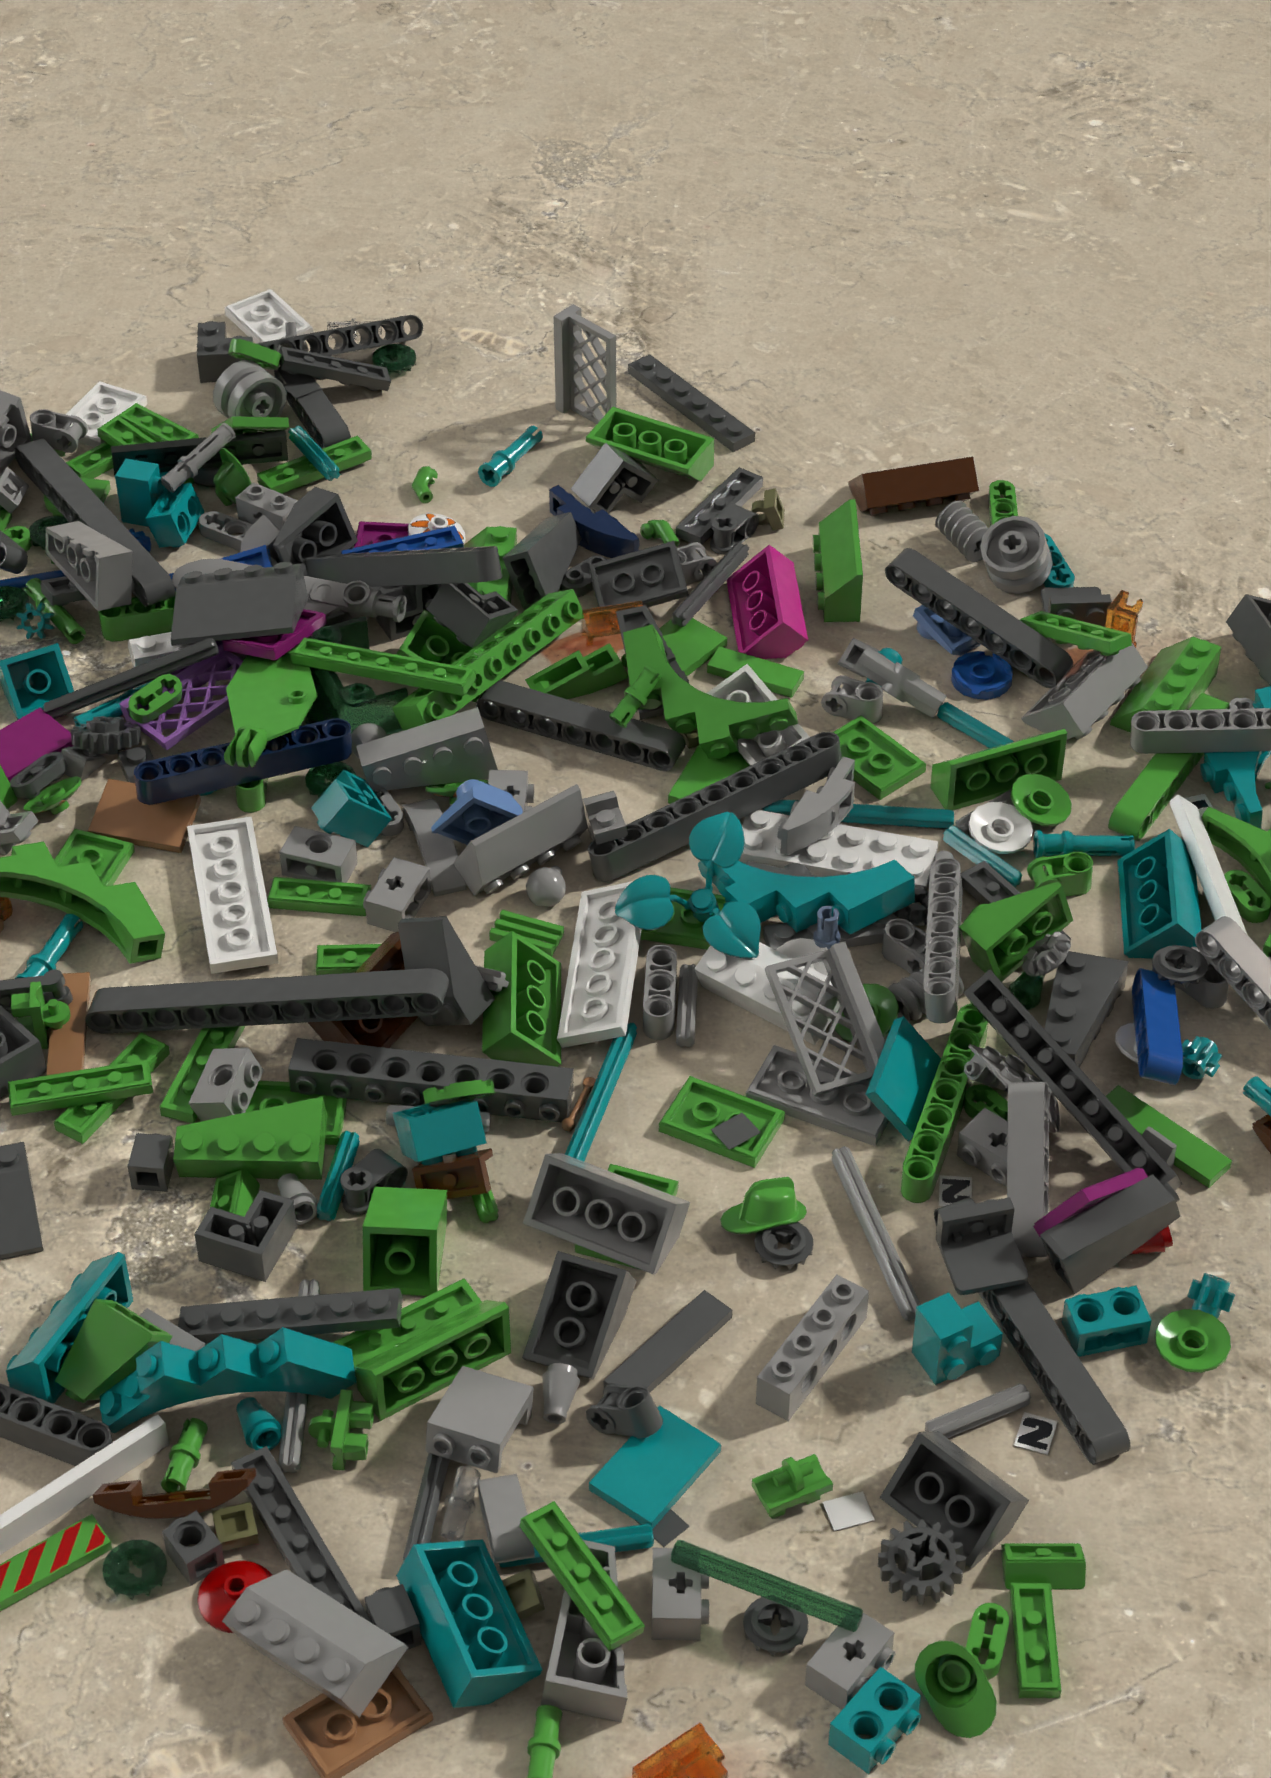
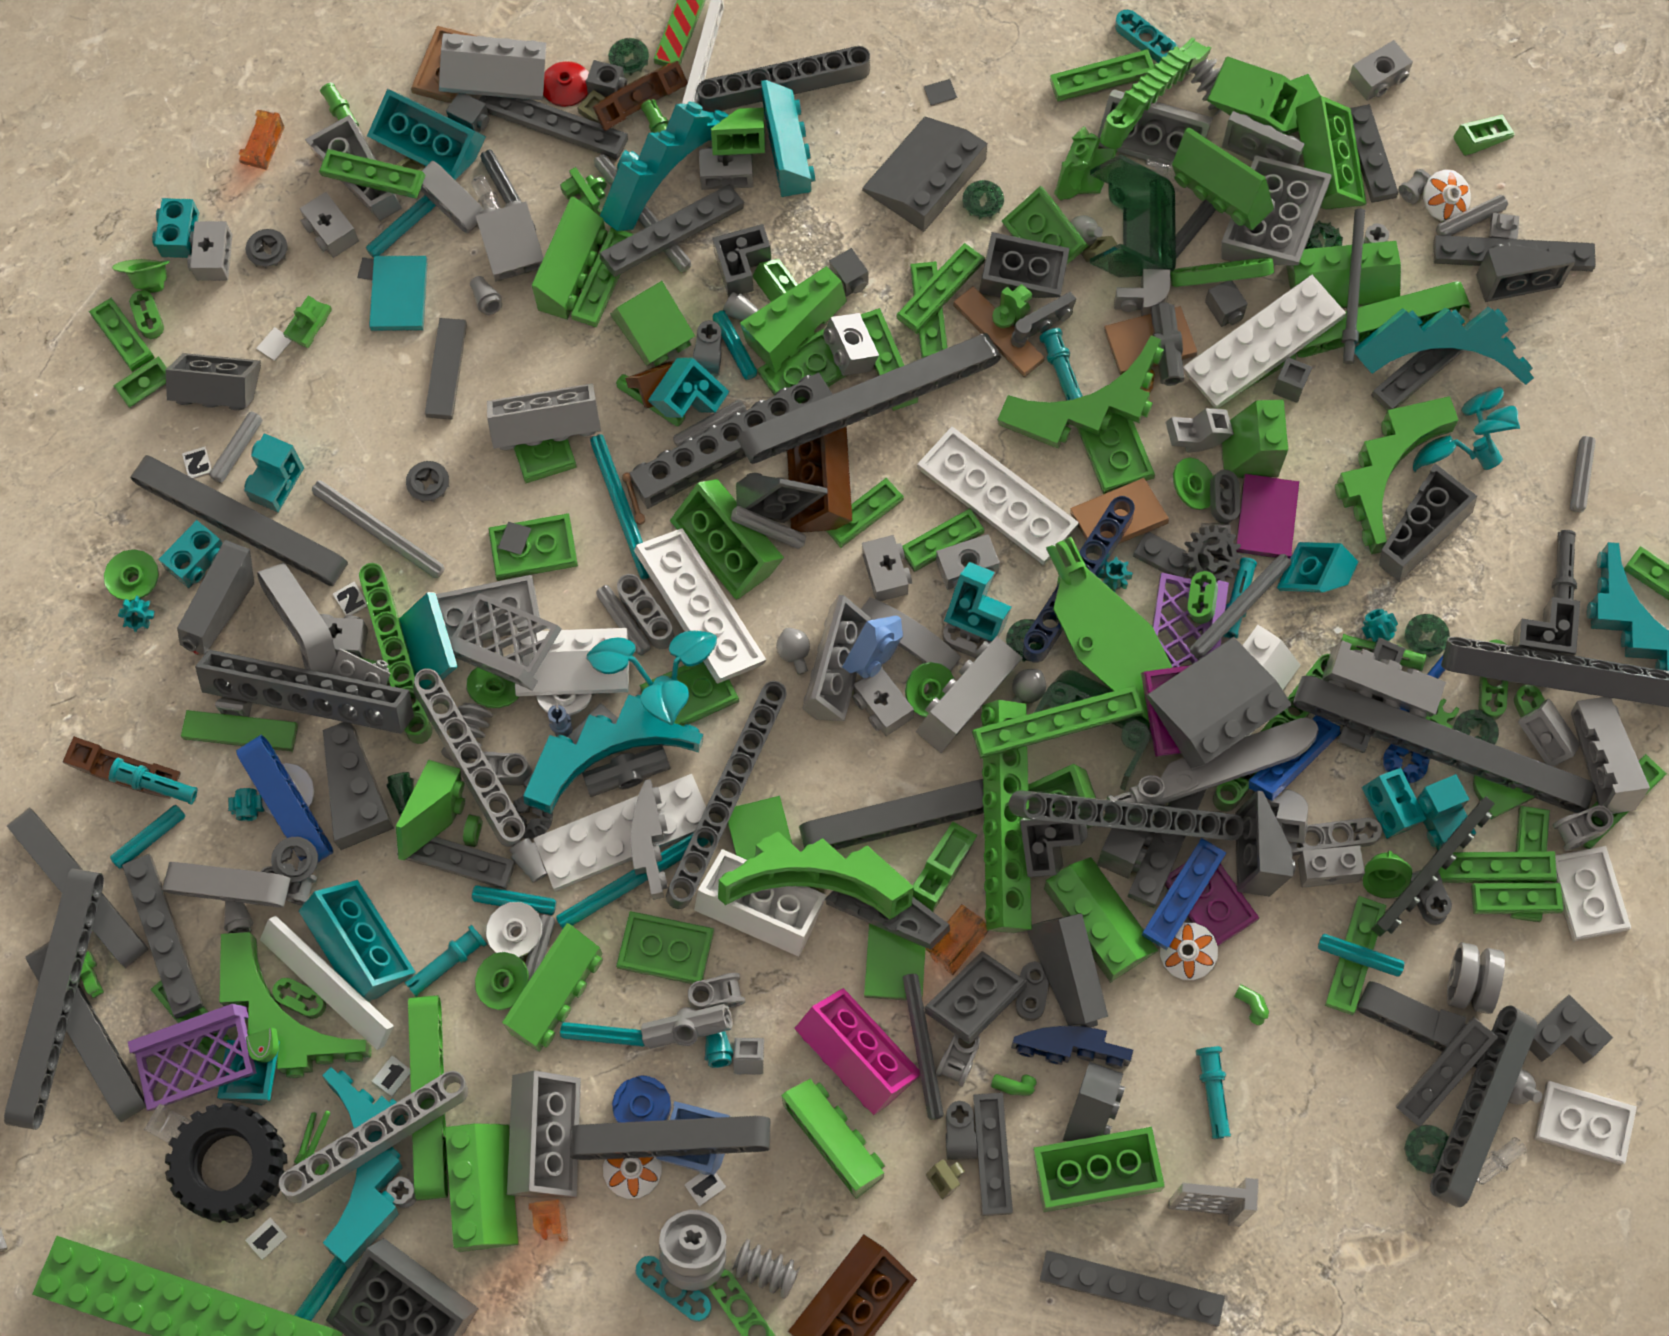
camera: 145 degrees right, 25 degrees up
(189, 465) = (1416, 815): light grey pin -> none
(245, 425) = (1428, 929): bright green tile -> none
(259, 354) = (1503, 1003): bright green beam -> none
(458, 1091) = (688, 412): bright green tile -> none
(528, 929) = (773, 596): bright green tile -> none
(579, 1313) = (510, 348): dark grey slope -> none
(604, 818) = (799, 722): light grey brick -> none
(625, 1412) = (439, 302): dark grey piece -> none
(635, 696) = (857, 837): bright green pin -> none
(764, 1206) = (454, 493): bright green piece -> none
(767, 1585) = (273, 241): clear green axle -> none
(776, 677) = (817, 977): bright green tile -> none
(812, 1347) = (356, 416): light grey brick -> none
(921, 1549) = (214, 321): dark grey gear -> none
(980, 1246) = (286, 528): dark grey bracket -> none
(1046, 954) = (384, 808): light grey gear -> none
(1070, 870) = (443, 912): bright green piece -> none
(1077, 603) = (614, 1238): dark grey bracket -> none
(1079, 633) = (576, 1169): bright green plate -> none
(1087, 1198) = (237, 606): magenta tile -> none

